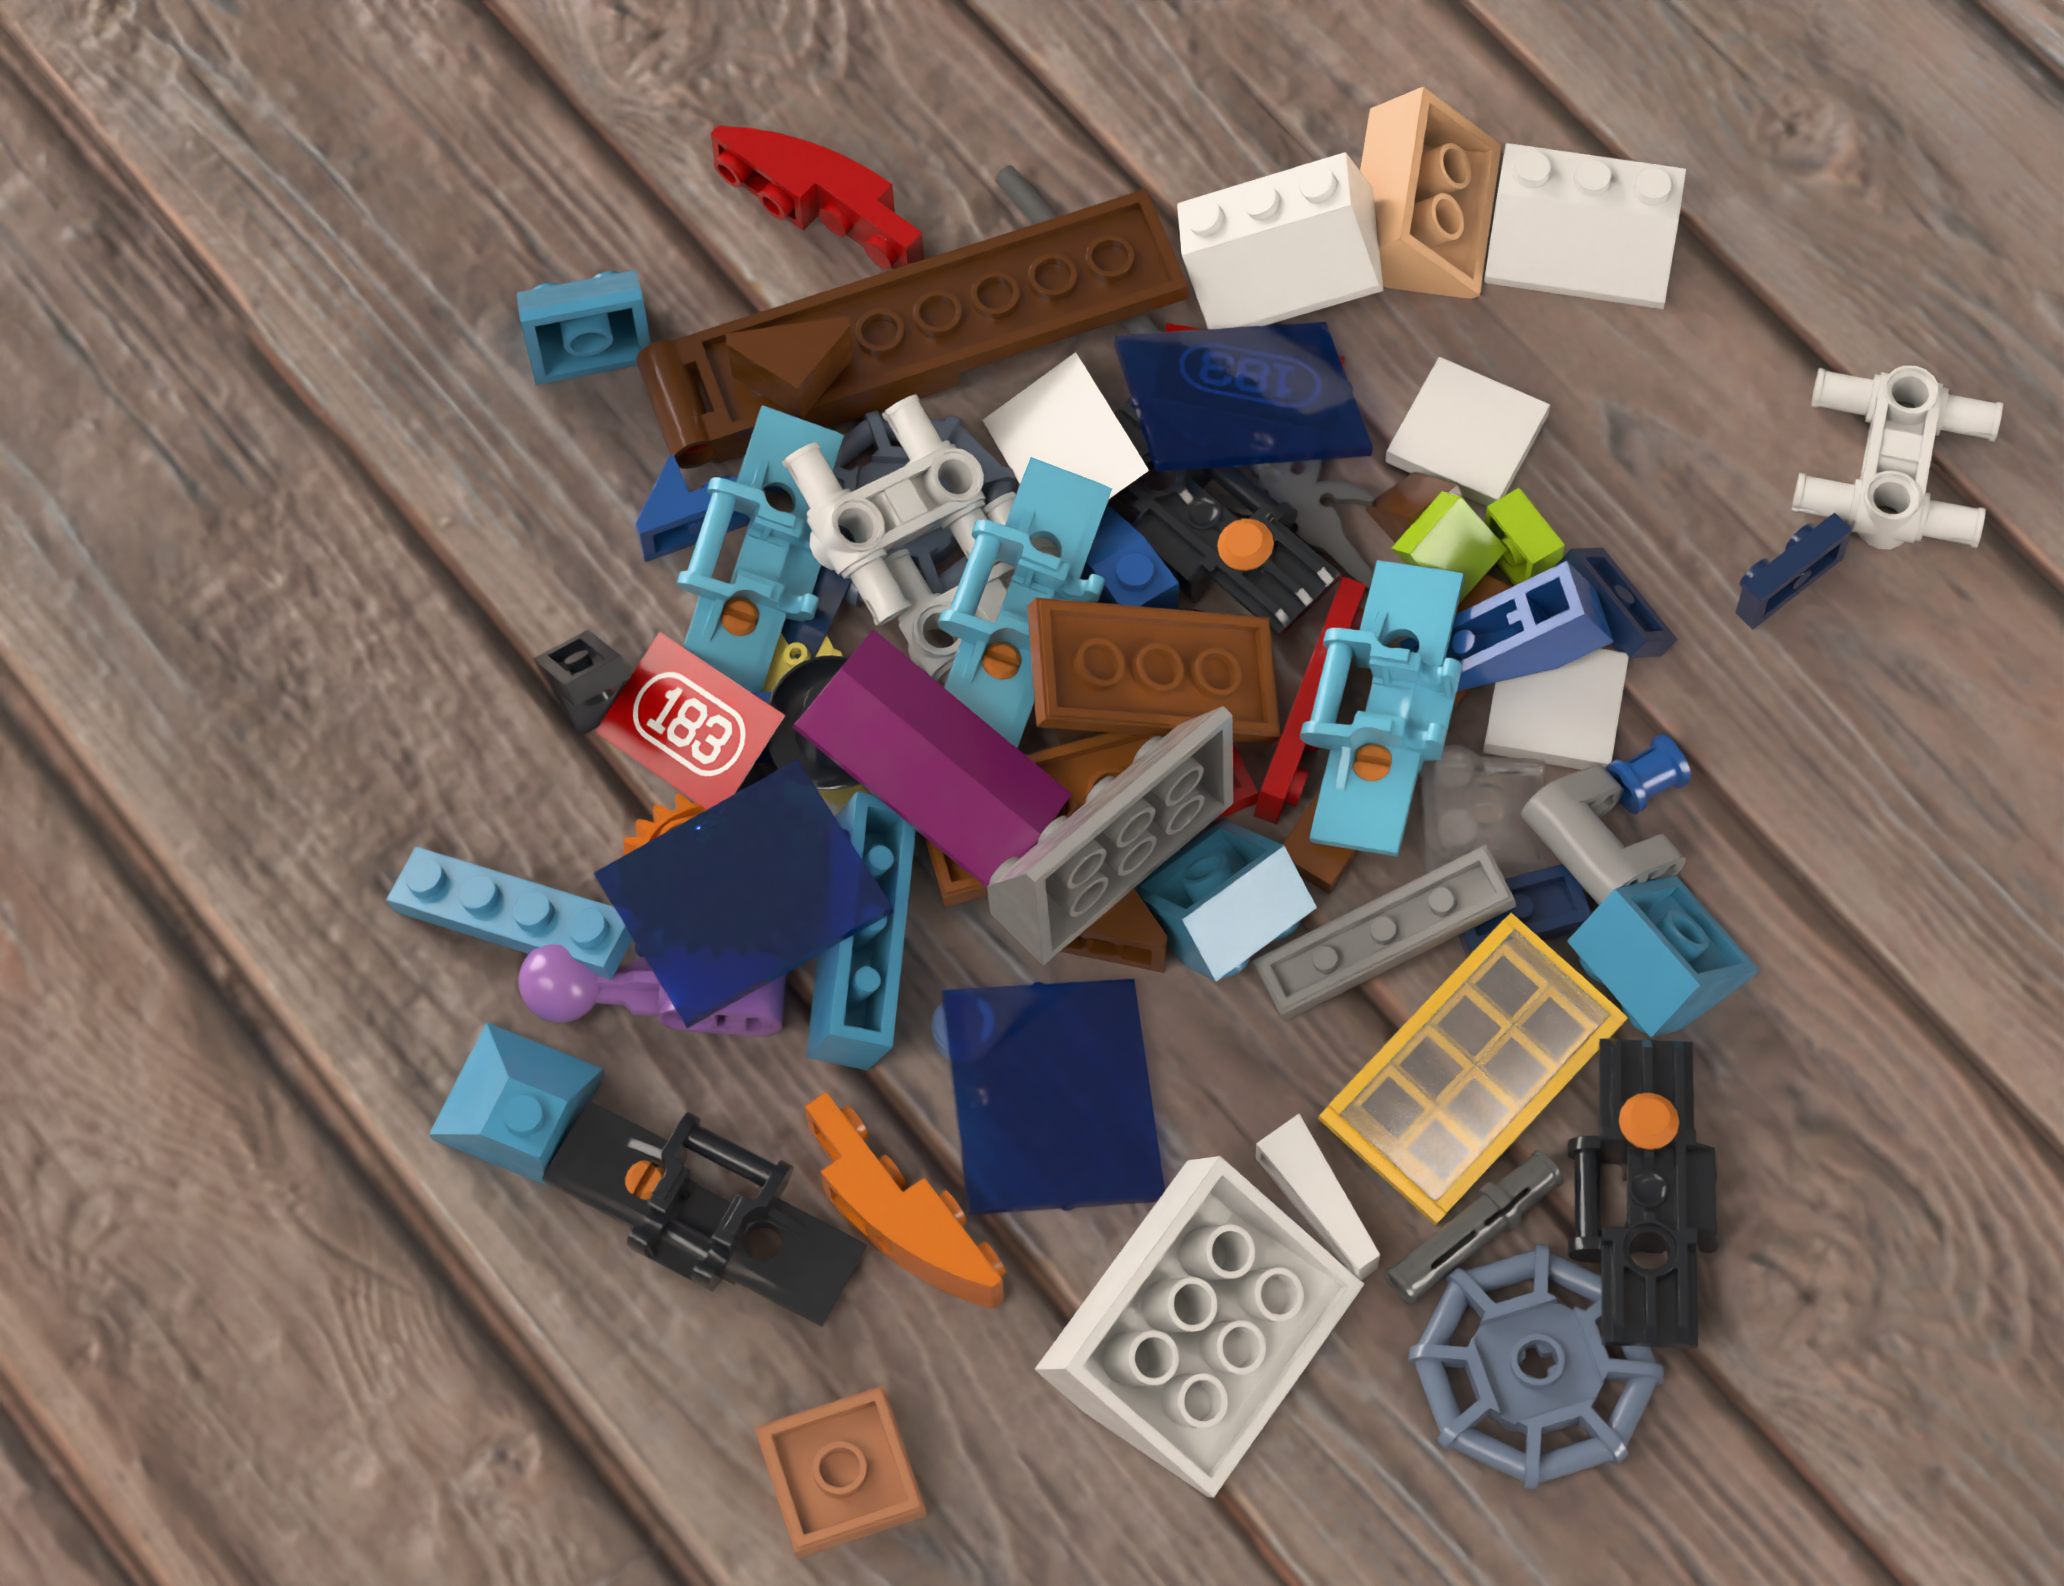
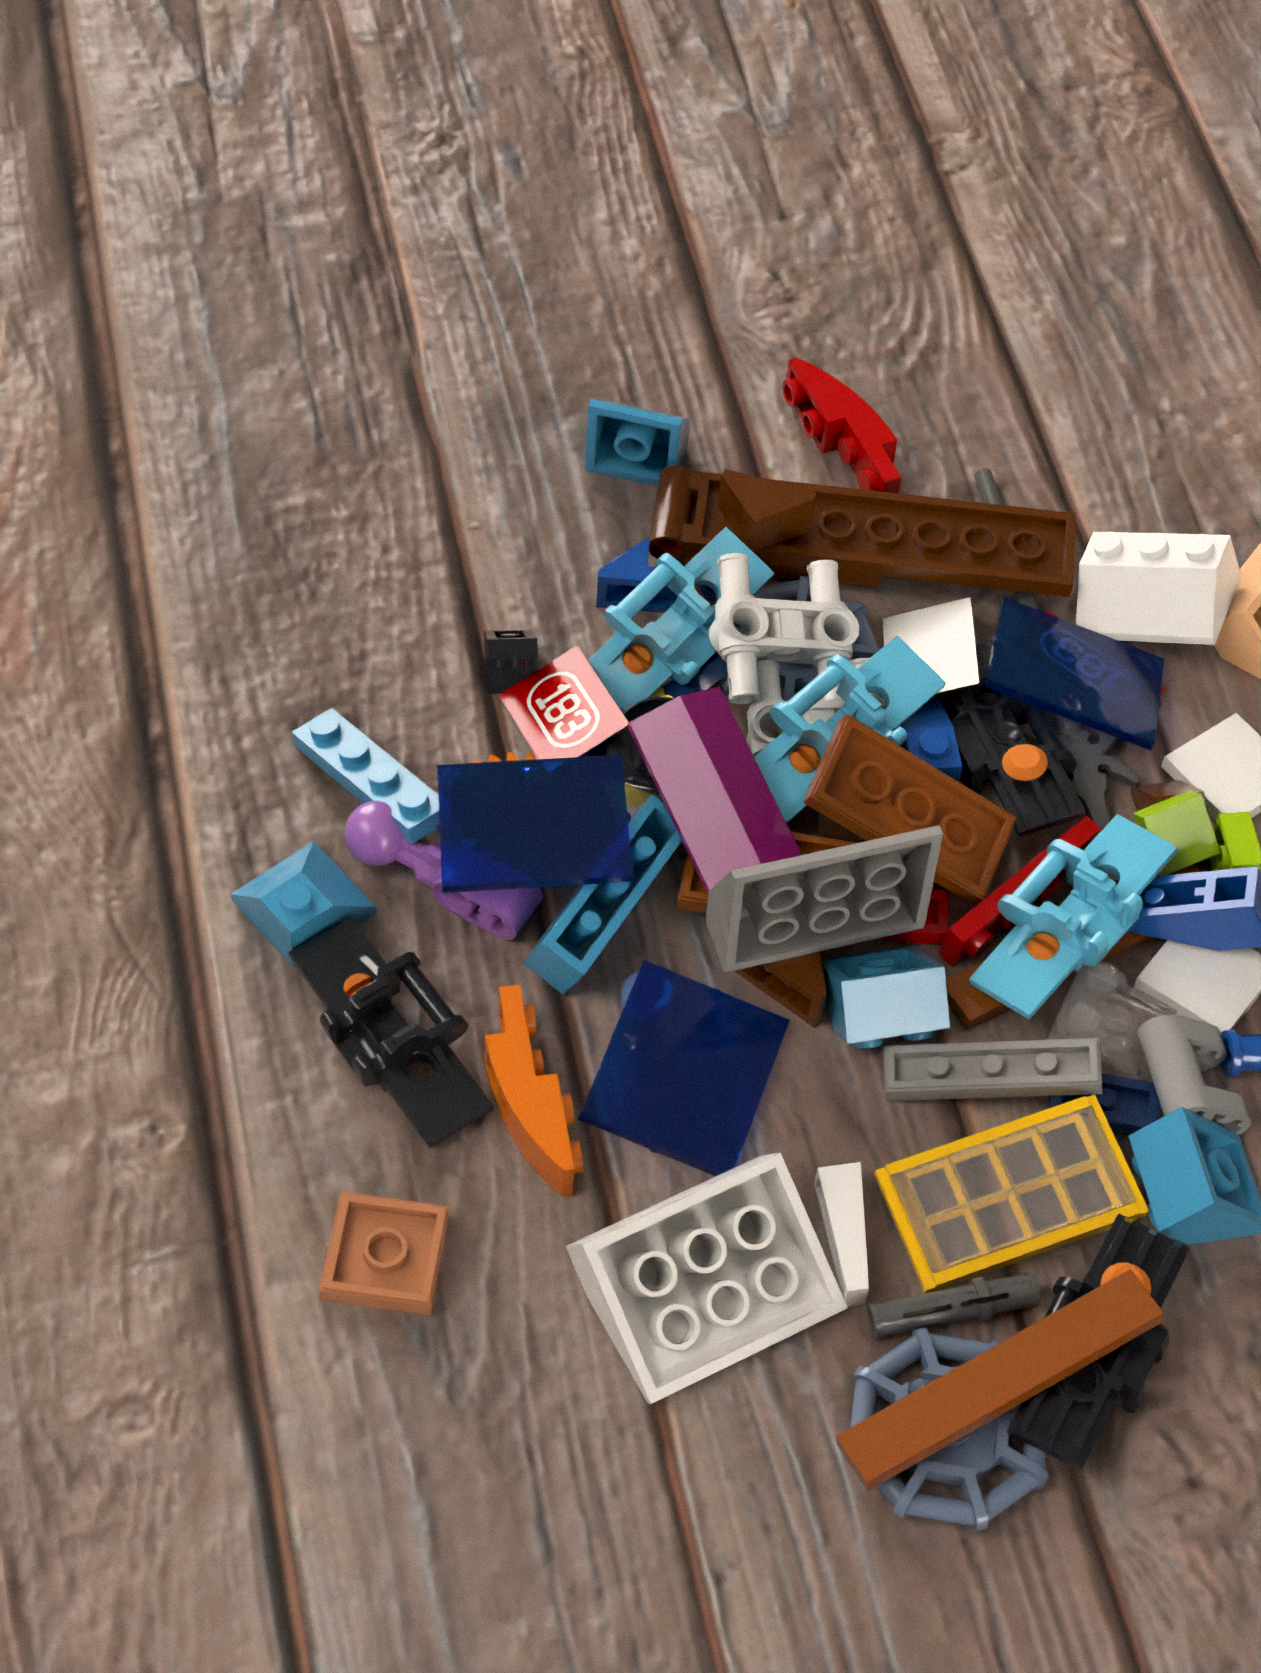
camera: 20 degrees right, 10 degrees down
(1570, 1294) = (999, 1379): none -> dark orange tile

